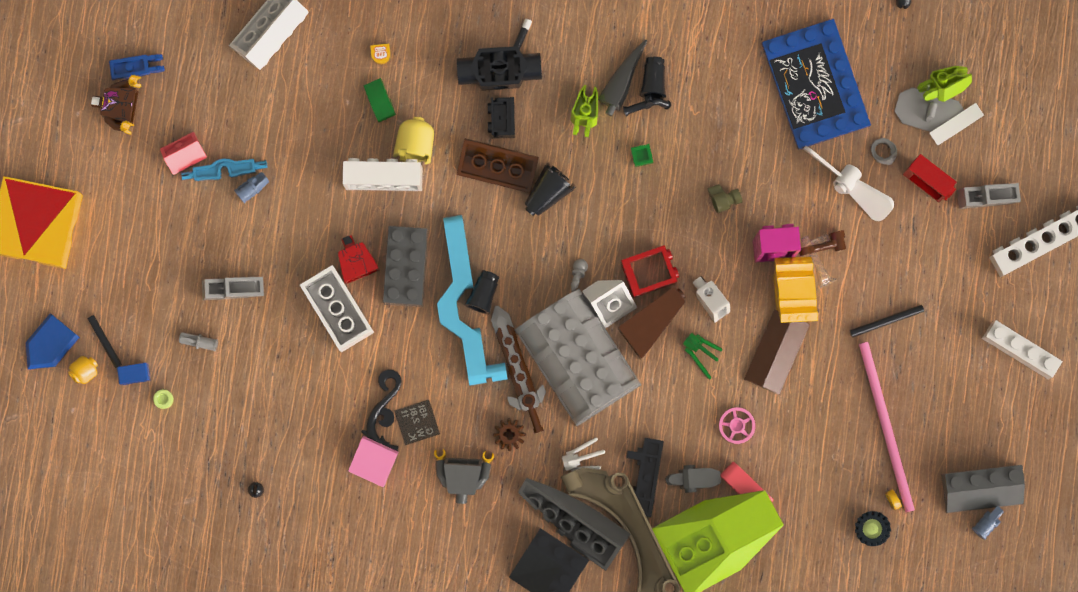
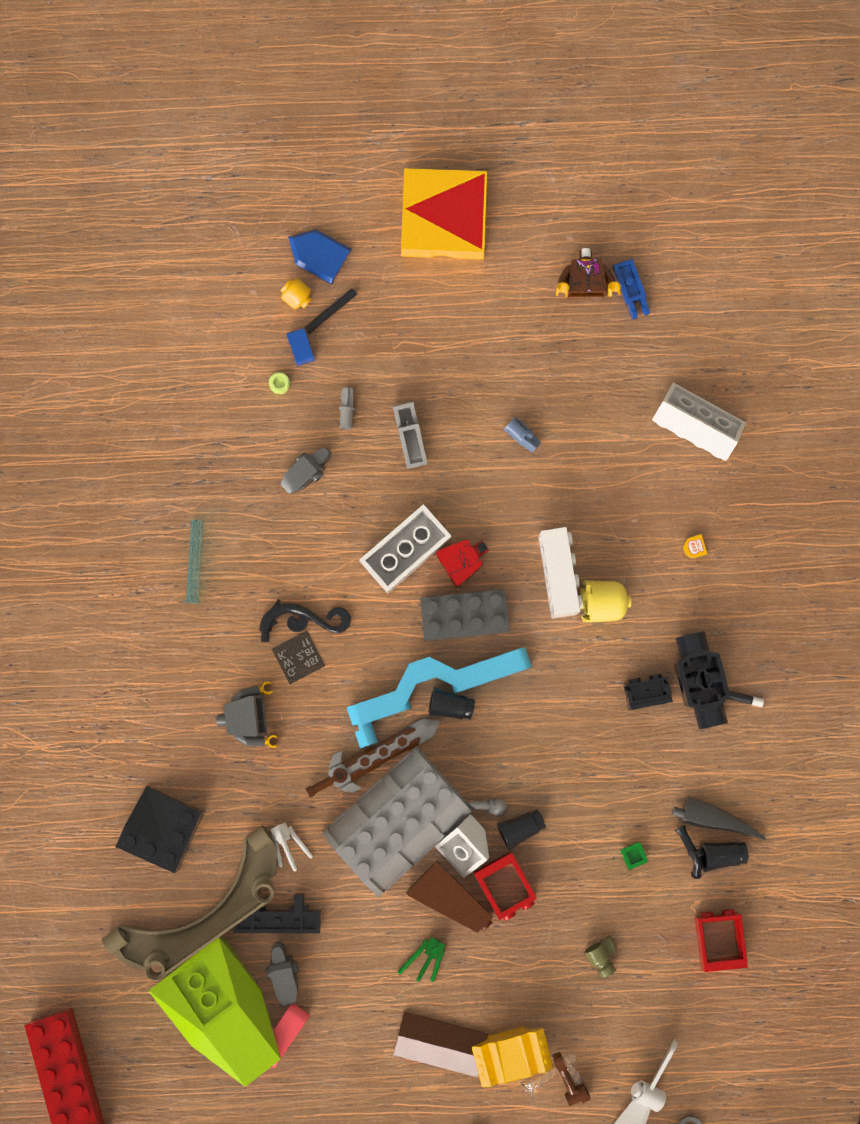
camera: 80 degrees right, 0 degrees up
(183, 153) = (546, 355): panel -> none
(213, 171) = (539, 413): dark azure piece -> none
(248, 386) = (305, 470): none -> dark grey hinge
(259, 492) = (198, 502): black hinge -> none
(314, 502) = (194, 562): none -> clear light blue axle
(373, 461) = (246, 617): bright pink tile -> none
(379, 100) = (642, 555): green slope -> none
(497, 165) = (593, 696): reddish brown slope -> none
(513, 429) = (294, 755): reddish brown gear -> none
(548, 190) = (575, 757): black cone -> none
(585, 112) = (669, 785): lime hinge -> none
(585, 527) = (212, 860): dark grey wedge -> none
(602, 249) = (520, 828): none -> black plant
(716, 304) = (479, 968): white torso -> none
(727, 77) = (727, 963): none -> red window
(737, 425) = (350, 1012): bright pink wheel -> none
(776, 243) = (560, 1029): dark pink brick -> none
(816, 84) = (751, 1041): plate -> none

